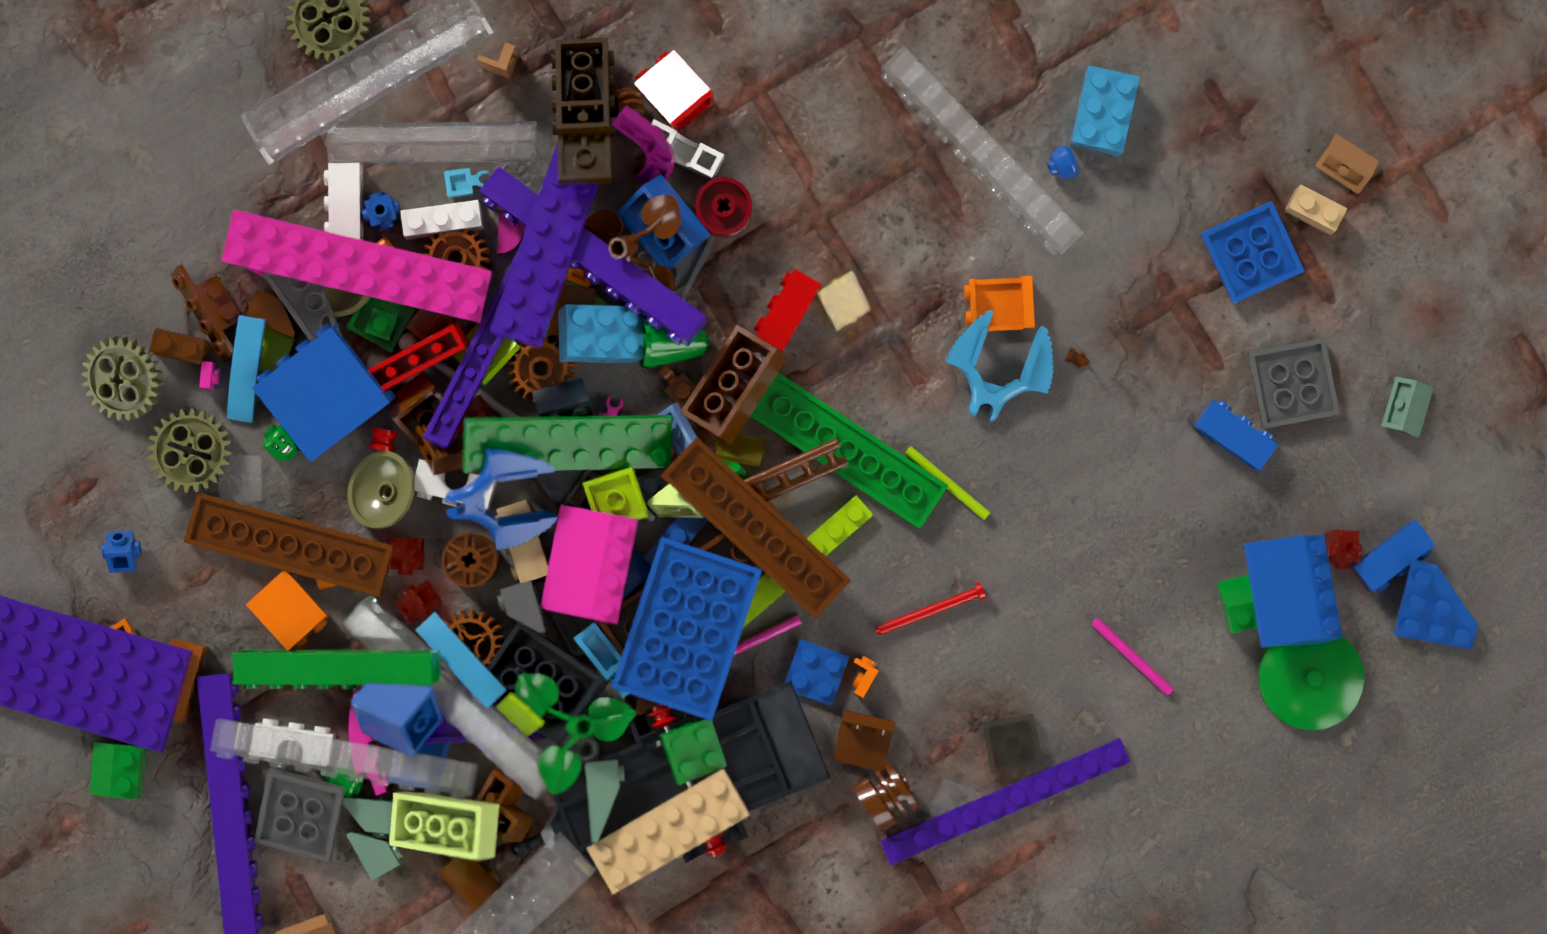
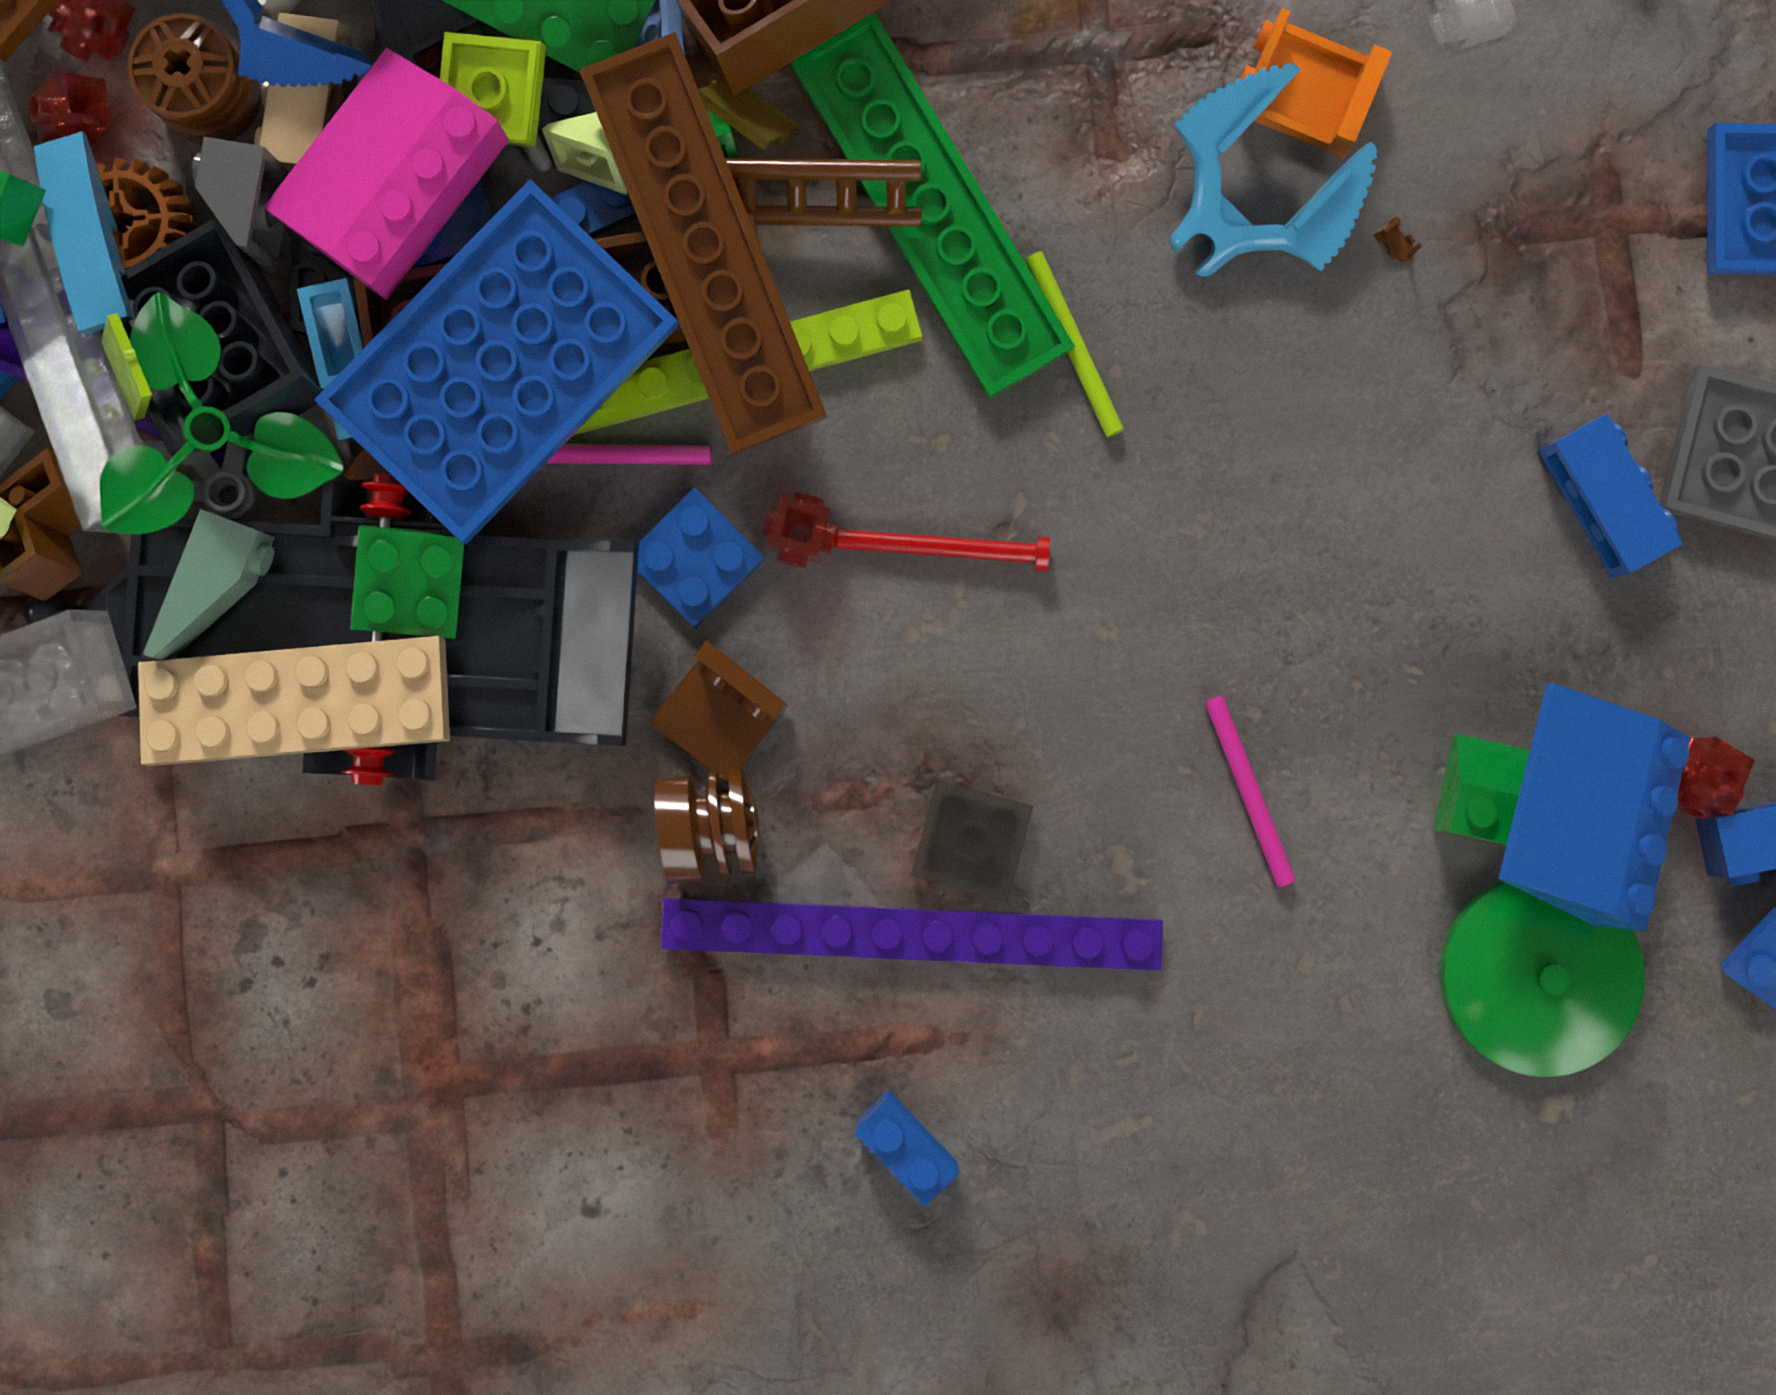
camera: 25 degrees right, 0 degrees up
(864, 681) = (768, 610): orange bracket -> none
(872, 636) = (797, 511): none -> clear red brick
(1050, 902) = (906, 1148): none -> blue brick

